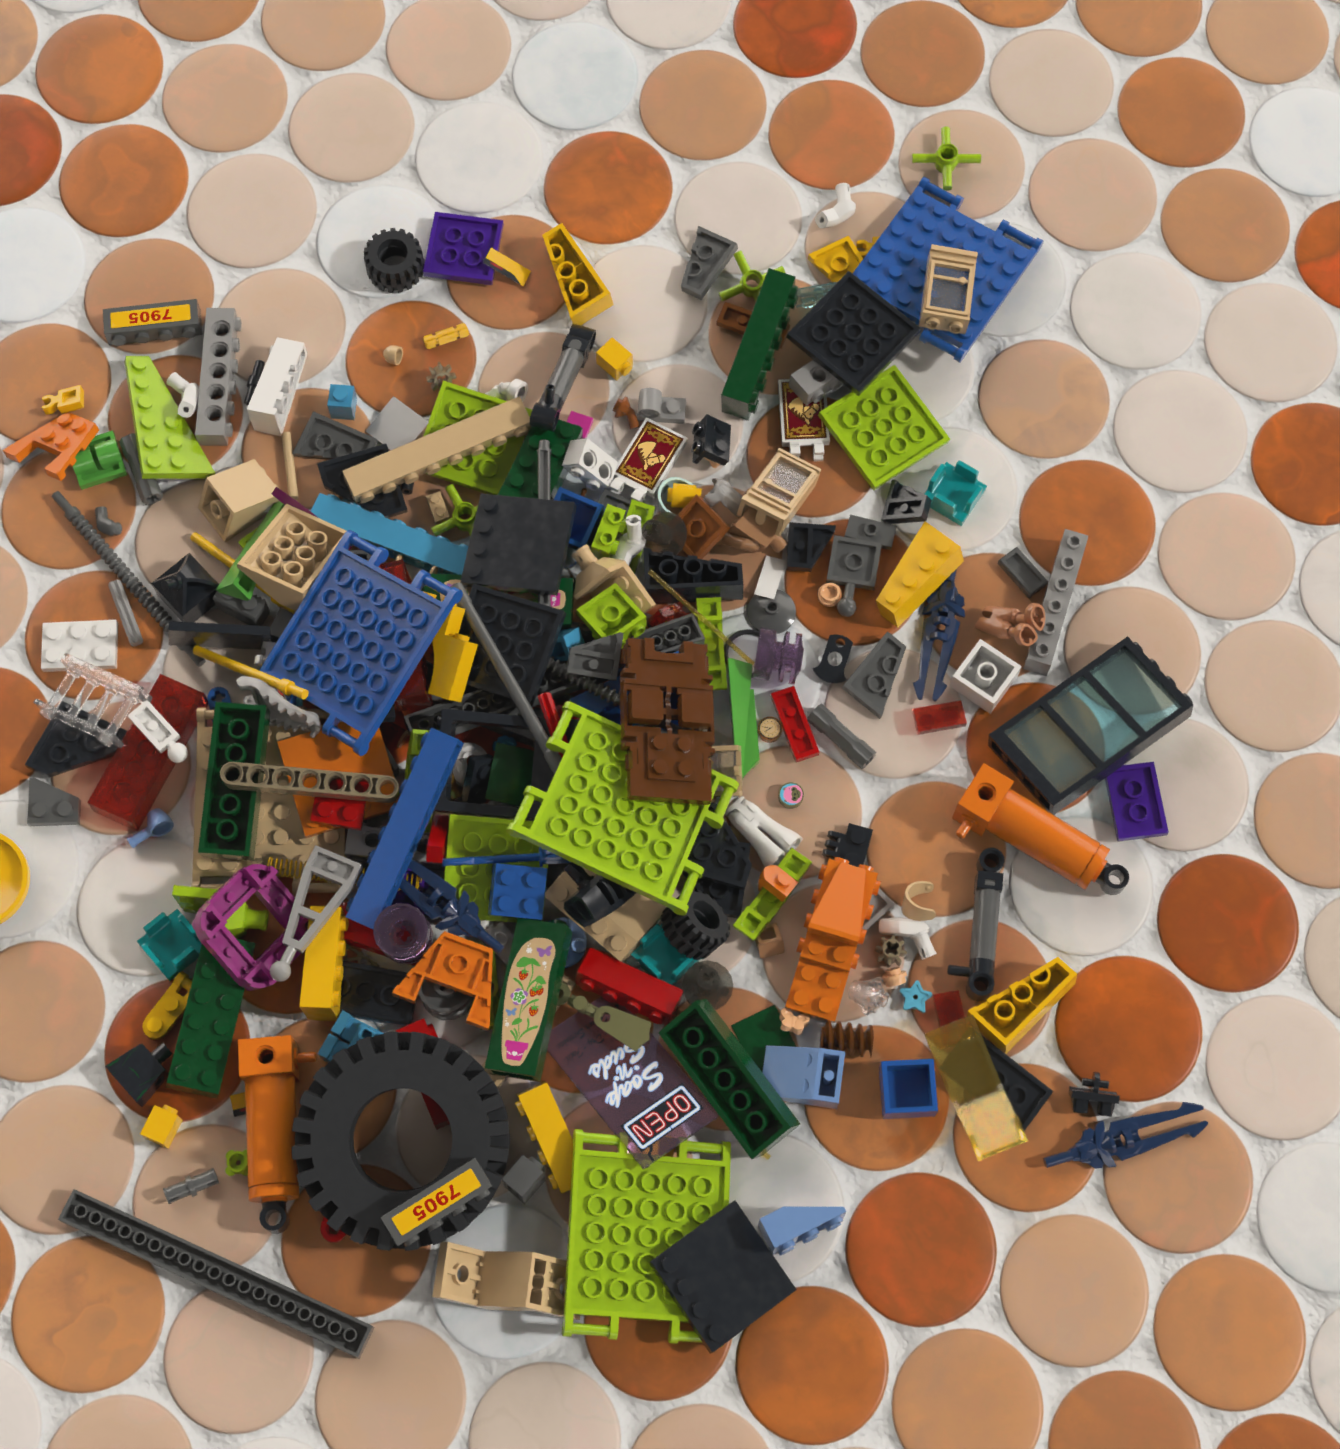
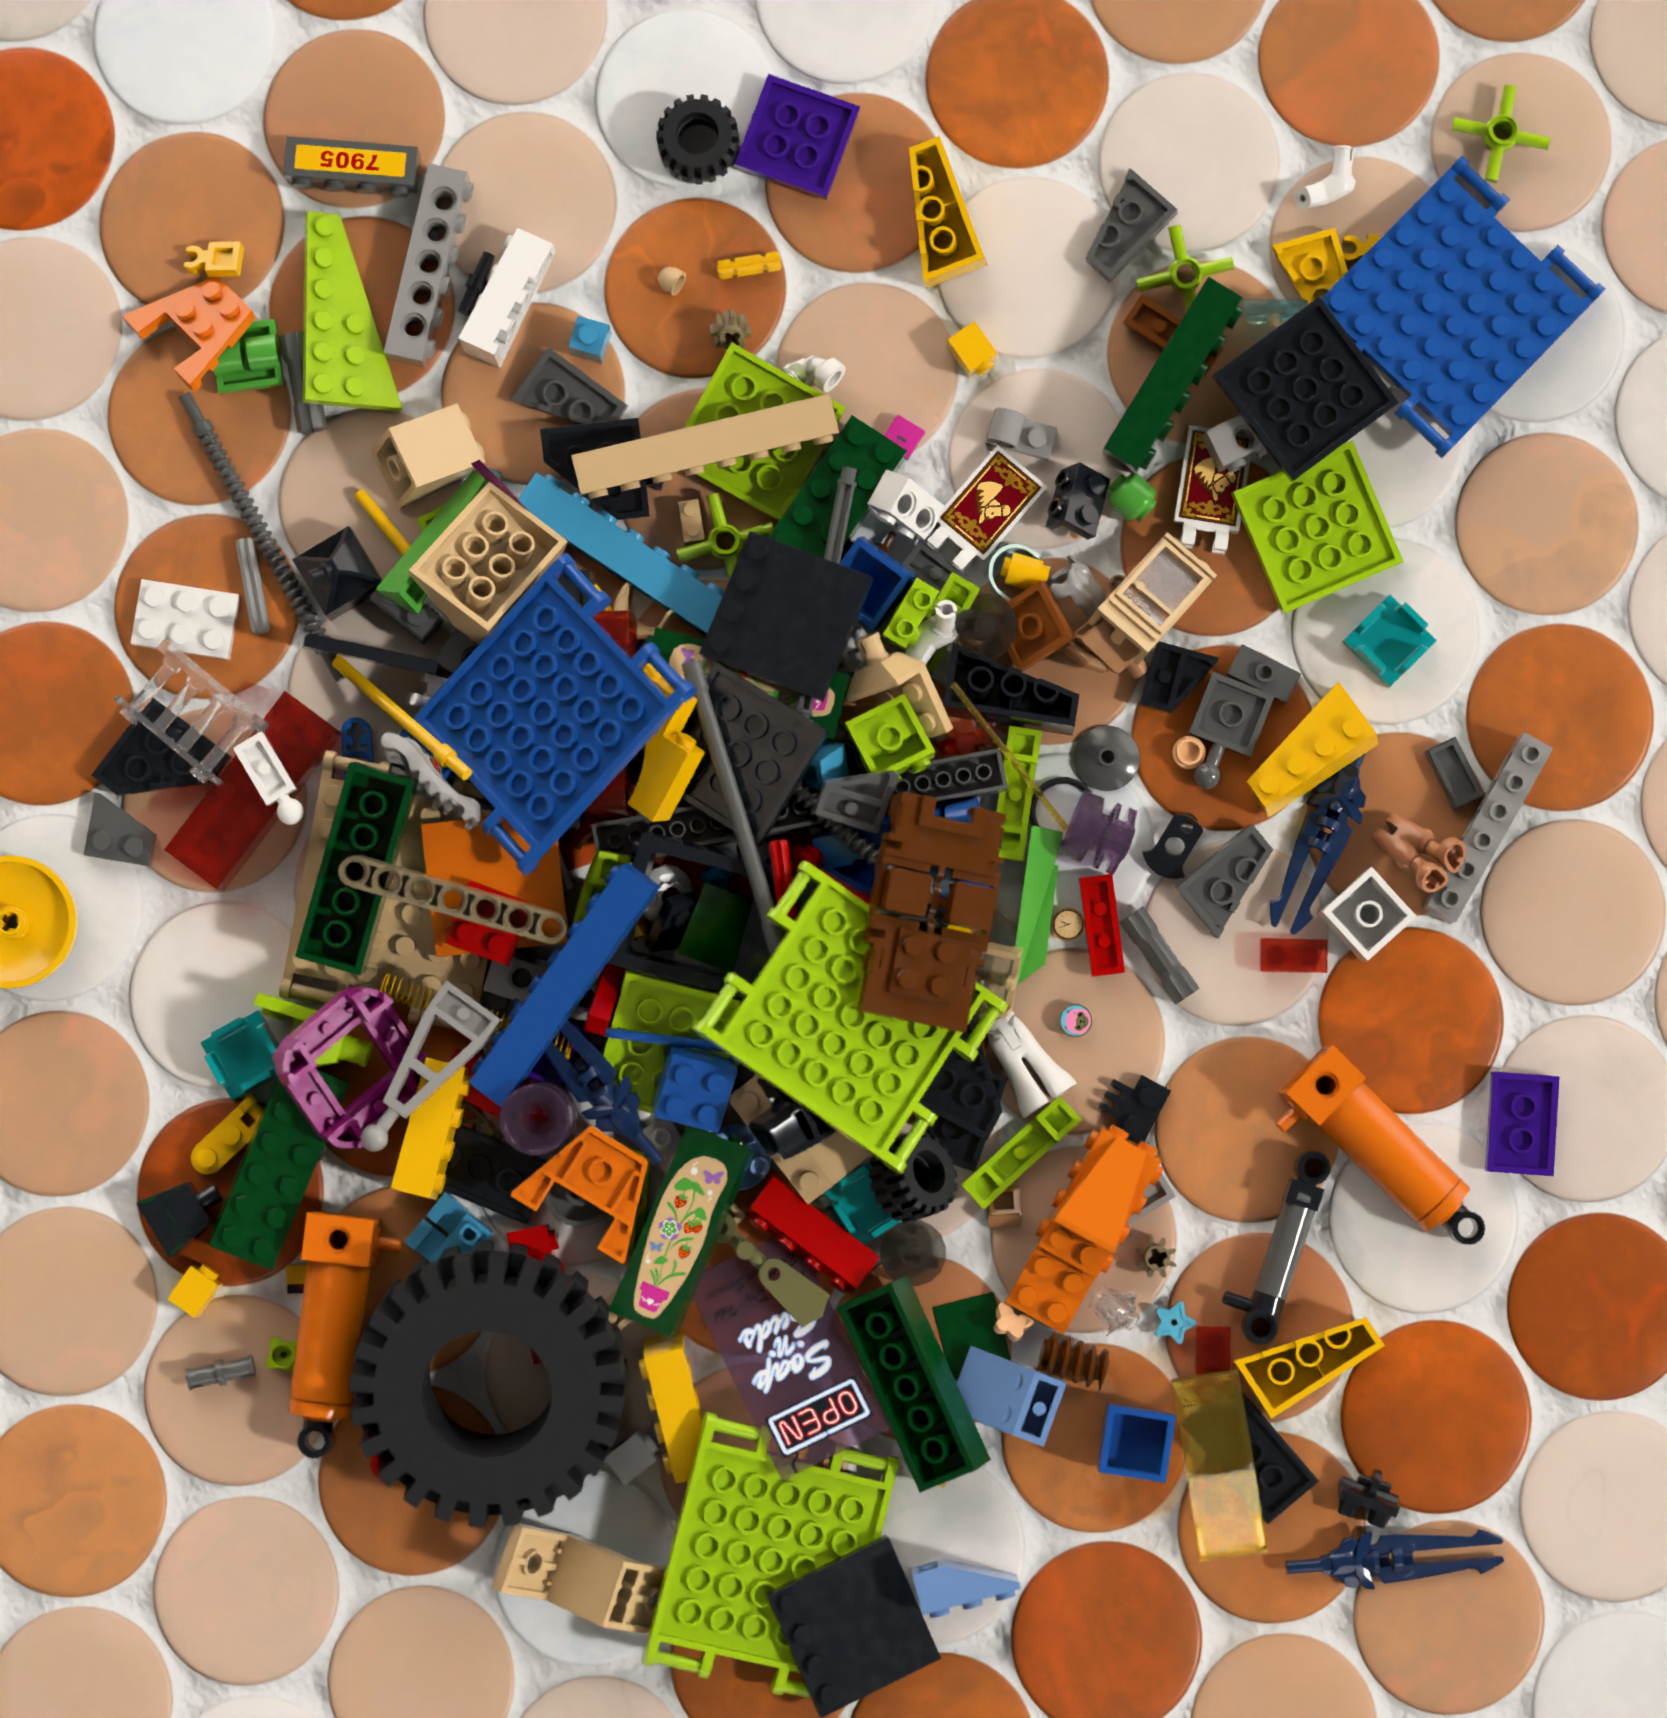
camera: 15 degrees right, 15 degrees up
(106, 525) = (244, 453): dark grey arm -> none
(157, 825) = (250, 891): medium blue bar -> none
(189, 394) = (385, 287): white arm -> none
(216, 1273) = (233, 1488): dark grey piece -> none
(289, 465) = (503, 416): tan bar -> none
(396, 425) = (657, 391): light grey sticker -> none
(437, 1201) = (517, 1481): brick -> none
(507, 266) = (852, 178): yellow sticker -> none
(573, 357) = (895, 370): piece -> none
(622, 409) = (969, 426): dark orange plate -> none
(749, 432) = (1132, 497): none -> bright green head
(770, 577) = (1115, 711): white sticker -> none
(776, 882) = (1030, 1139): orange plate -> none
(894, 977) = (1153, 1292): light nougat plate -> none
(905, 505) = (1318, 648): black wing -> none
(910, 929) = (1187, 1233): white arm -> none
(912, 910) = (1192, 1210): tan helmet -> none
(948, 289) = (1450, 351): tan door -> none
(1090, 725) = (1490, 1010): window -> none

